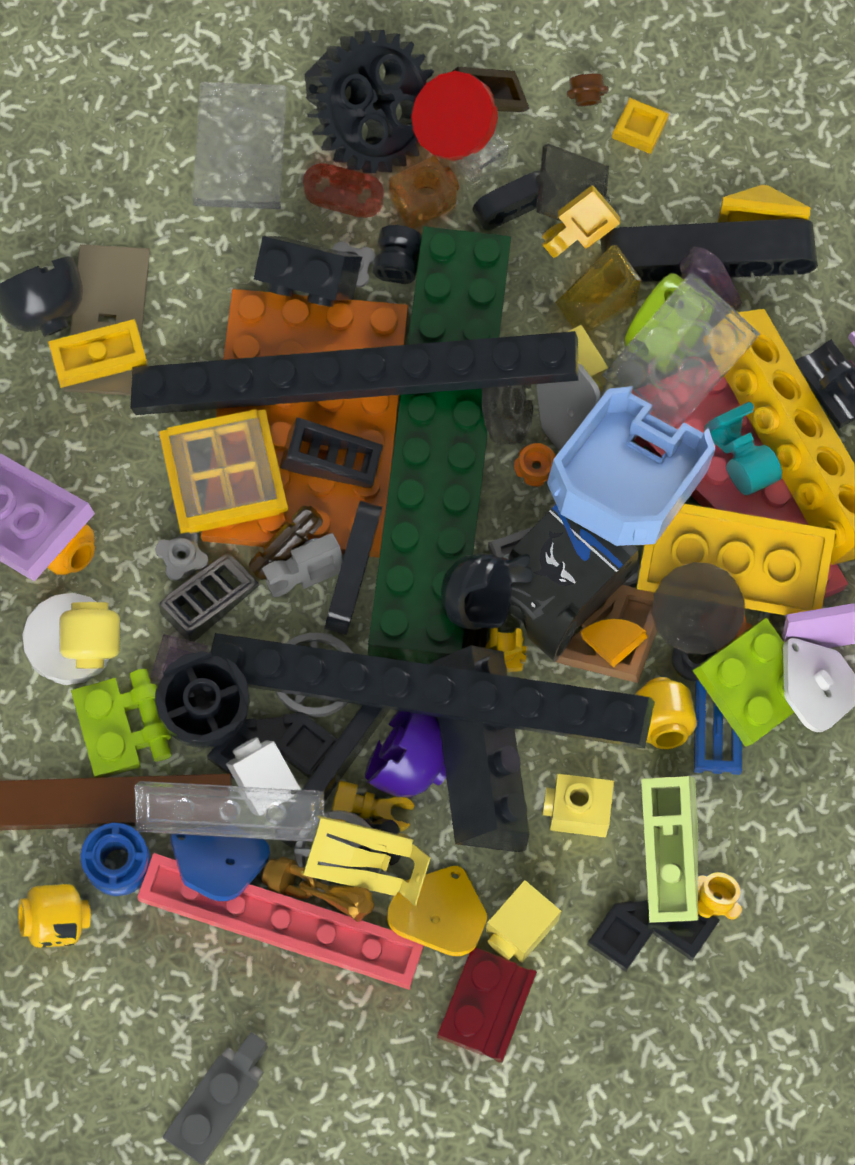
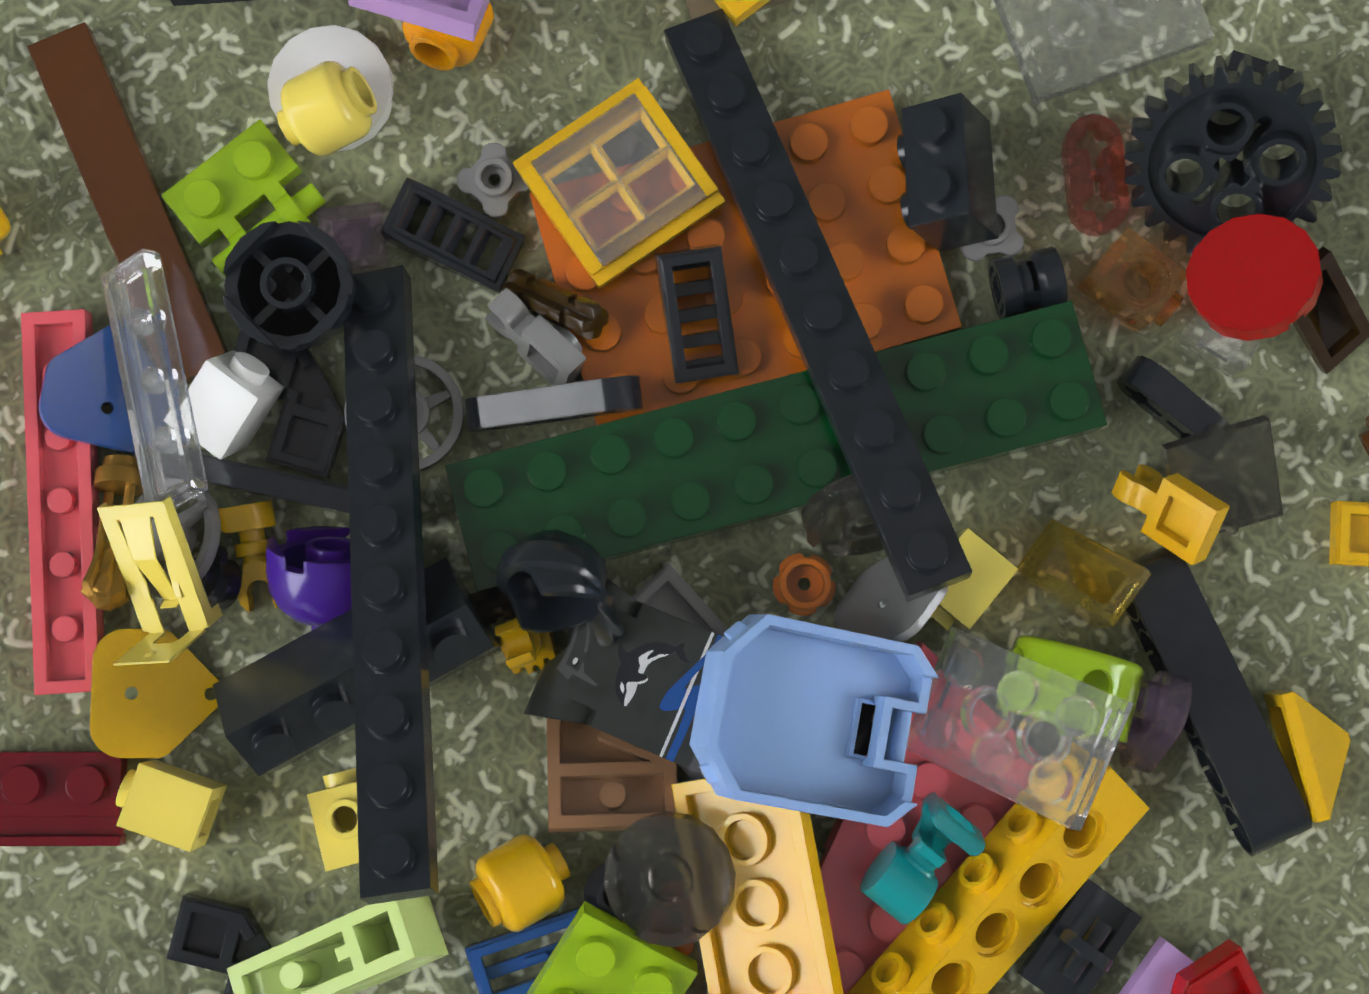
camera: 70 degrees right, 15 degrees up
(104, 841) = (38, 250): blue wheel -> none
(613, 638) = (586, 781): light orange tile -> none

